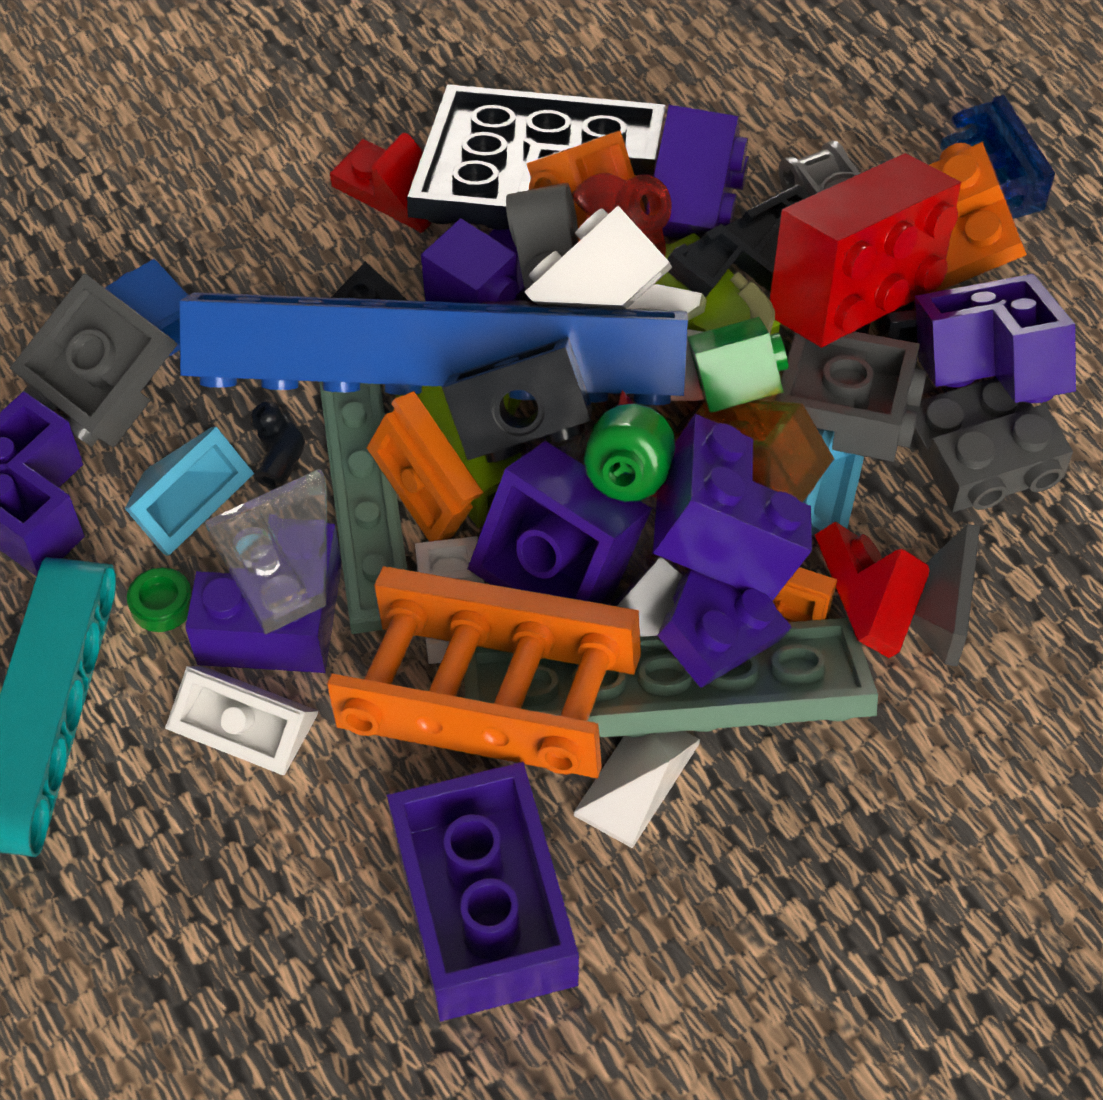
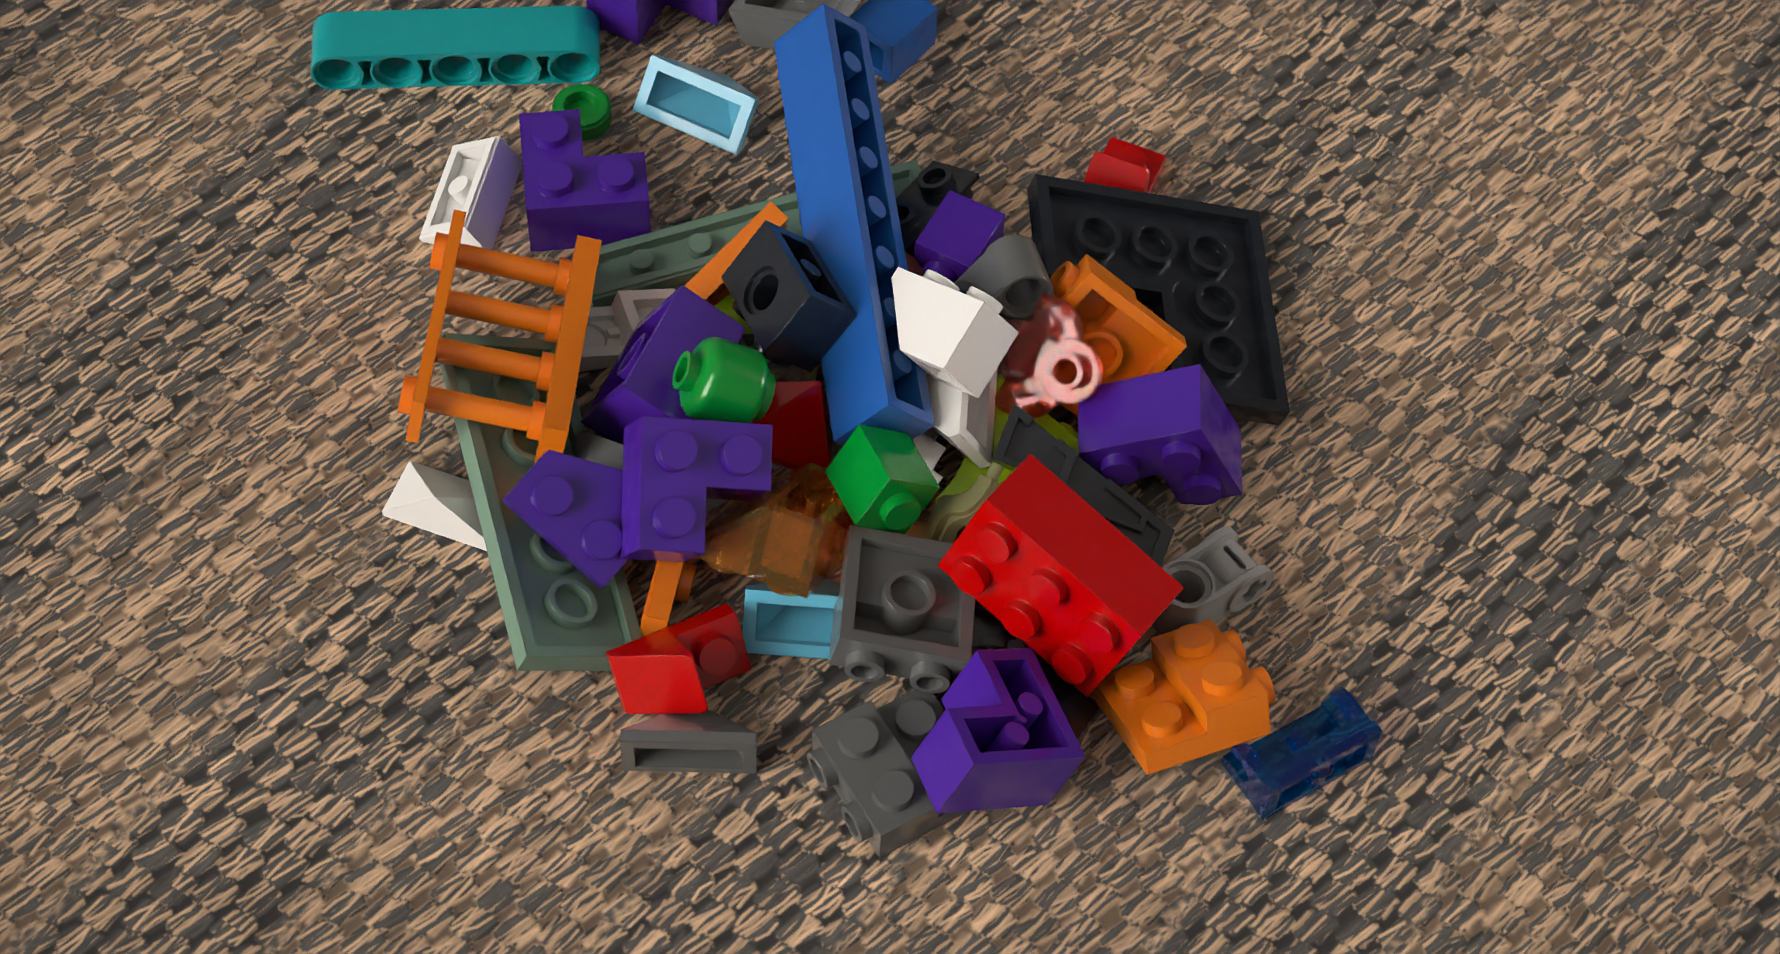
camera: 75 degrees right, 0 degrees up
(278, 550) = (589, 149): clear wing -> none
(281, 440) = (760, 169): black arm -> none
(483, 891) = (299, 384): dark purple brick -> none

